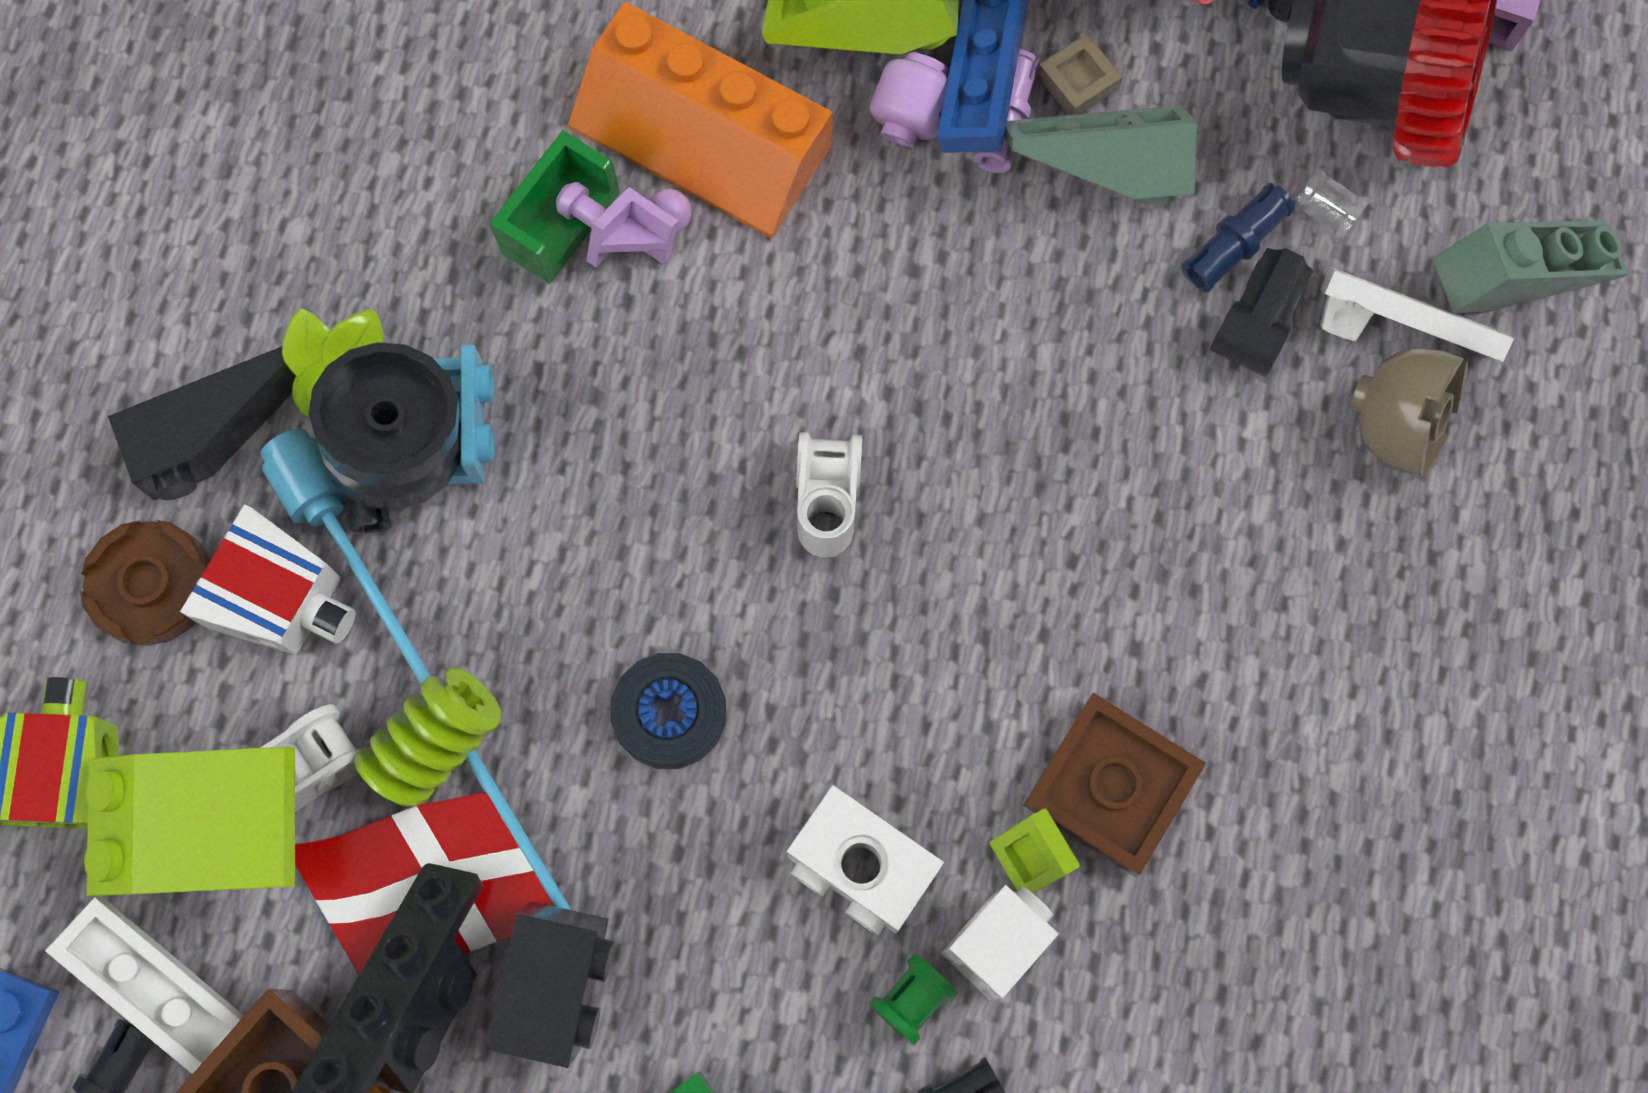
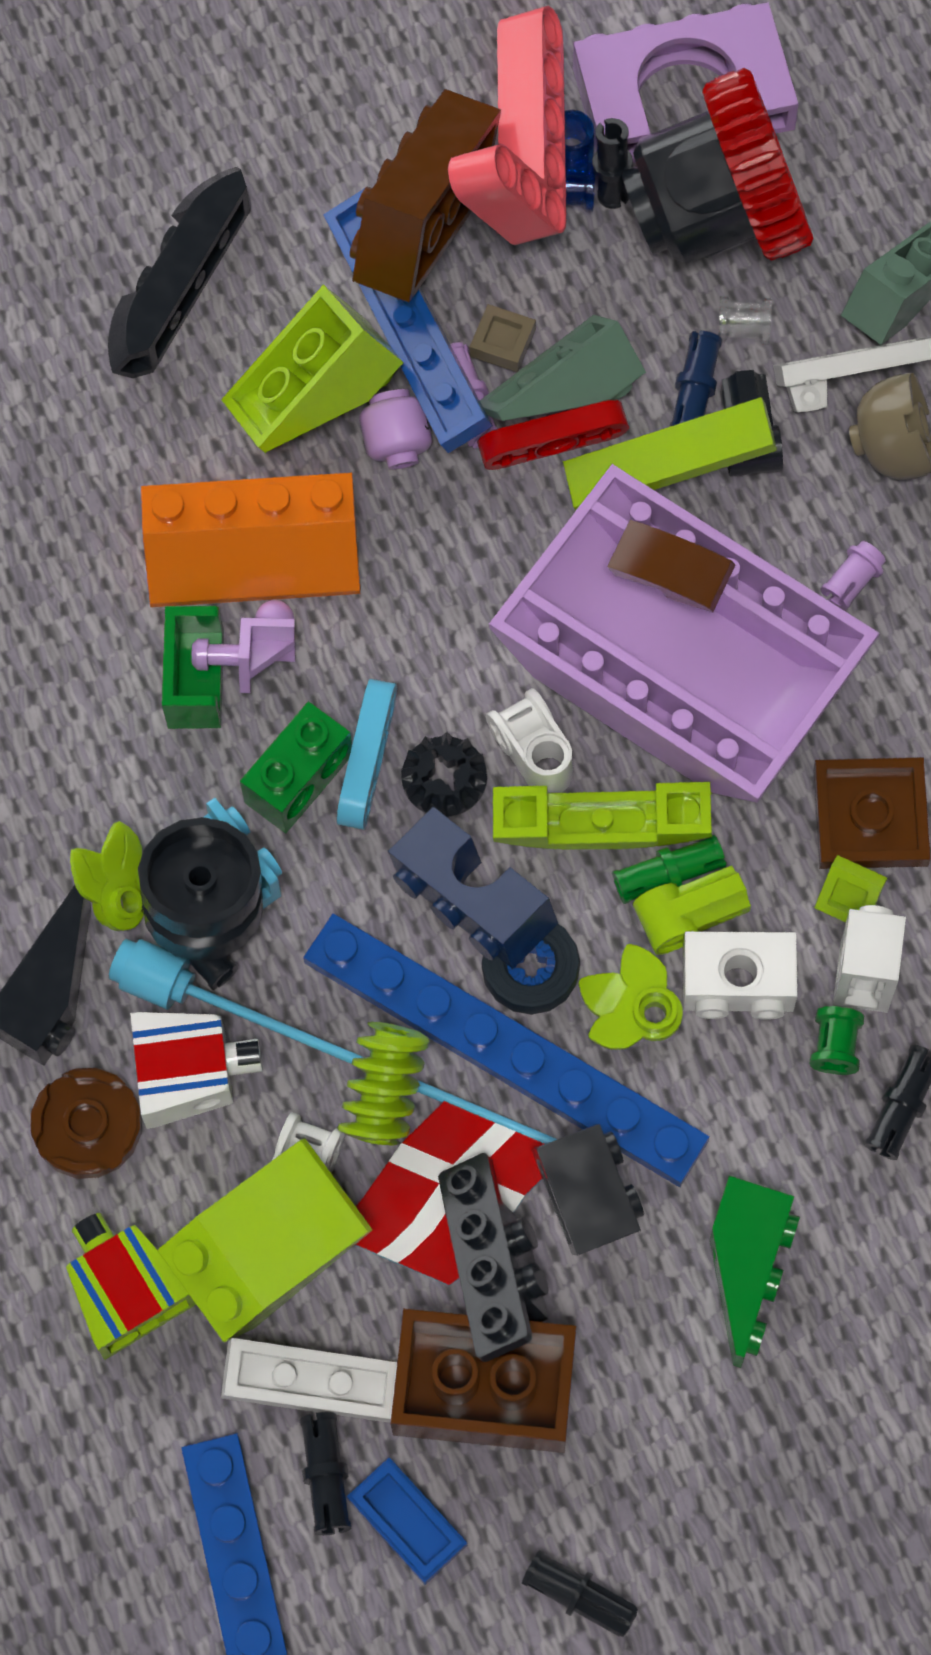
camera: 30 degrees left, 5 degrees down
(581, 366) = (296, 767): none -> green brick
(587, 787) = (505, 1049): none -> blue plate
(659, 397) = (366, 754): none -> medium azure beam
(663, 647) = (501, 918): none -> dark blue arch
(736, 806) = (625, 997): none -> lime plate
(741, 486) = (468, 782): none -> black gear
(840, 609) = (602, 819): none -> lime slope
(853, 759) = (693, 907): none -> lime piece
(870, 705) = (669, 868): none -> green pin
(1043, 482) = (696, 688): none -> lavender slope
(1061, 199) = (553, 434): none -> red beam
(1074, 401) = (671, 565): none -> reddish brown slope
(1162, 291) = (679, 450): none -> lime tile
(1266, 527) = (853, 575): none -> lavender pin

